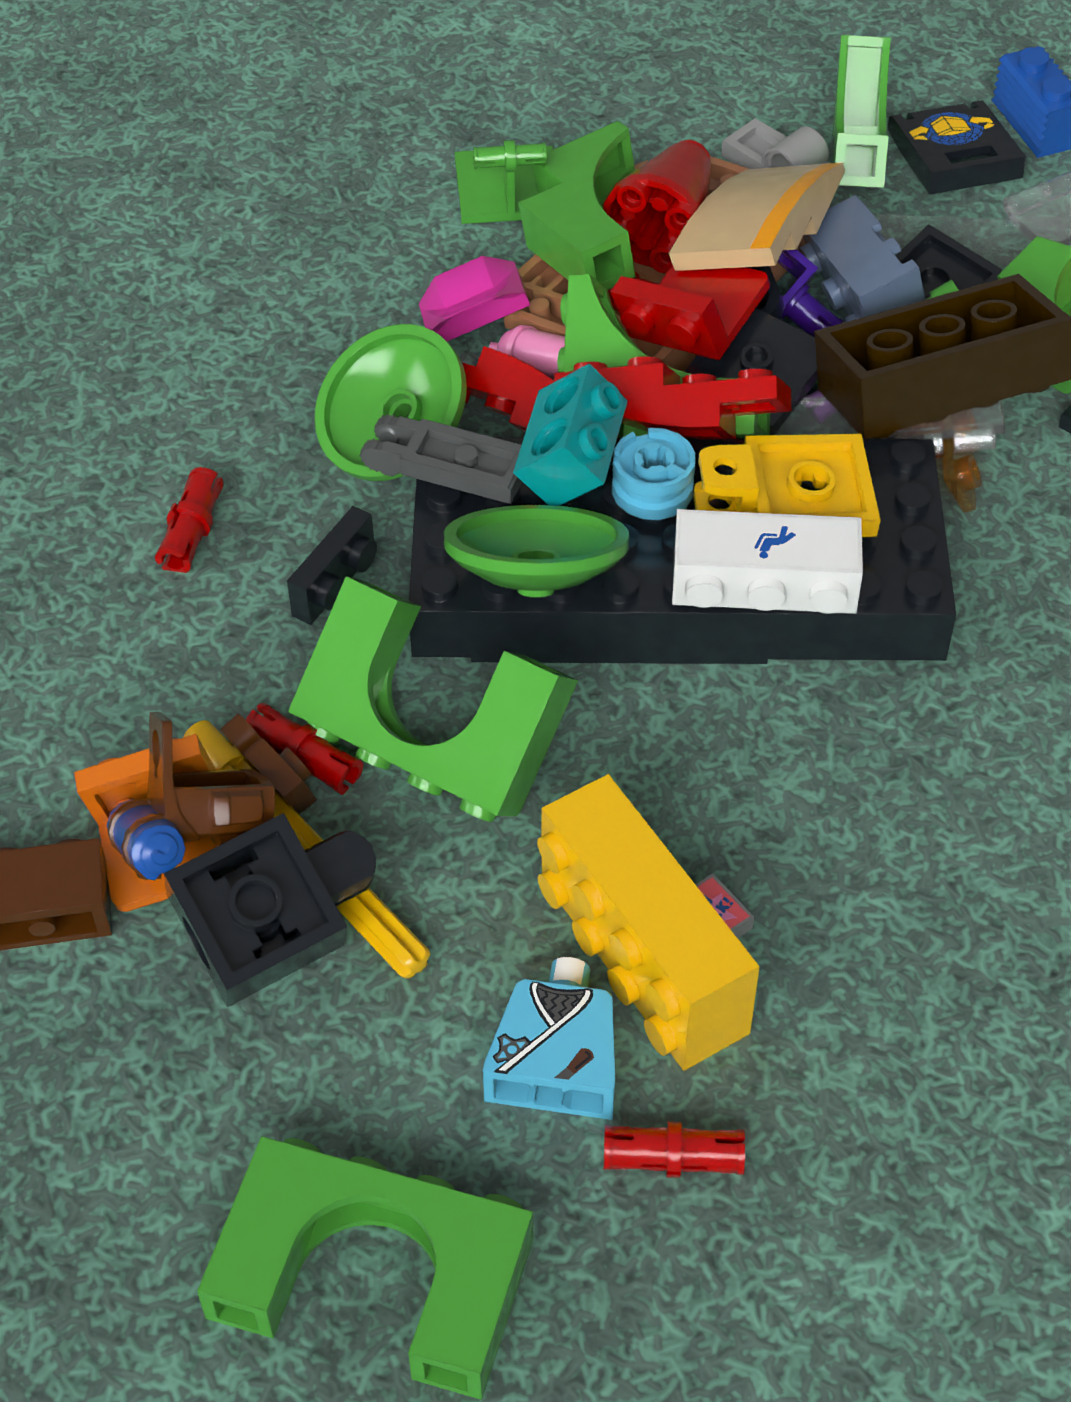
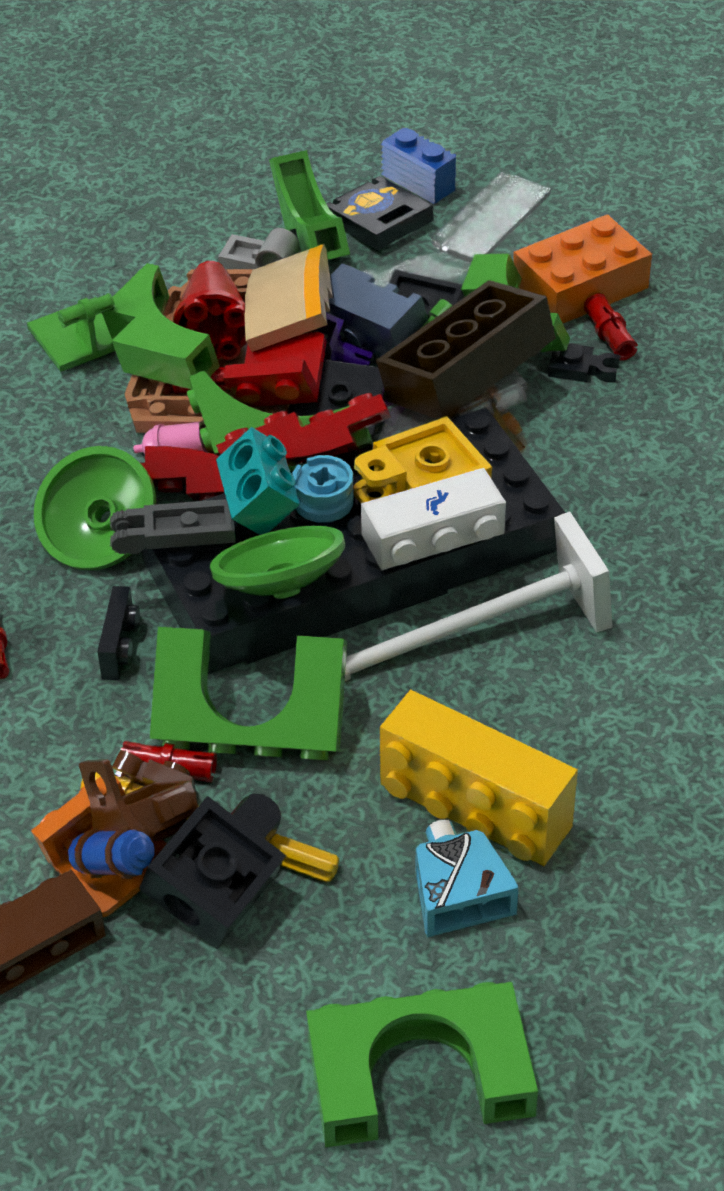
camera: 25 degrees left, 5 degrees down
(472, 296) = (107, 416): dark pink slope -> none
(674, 1149) = (569, 913): red pin -> none
(929, 704) = (579, 571): none -> white tile

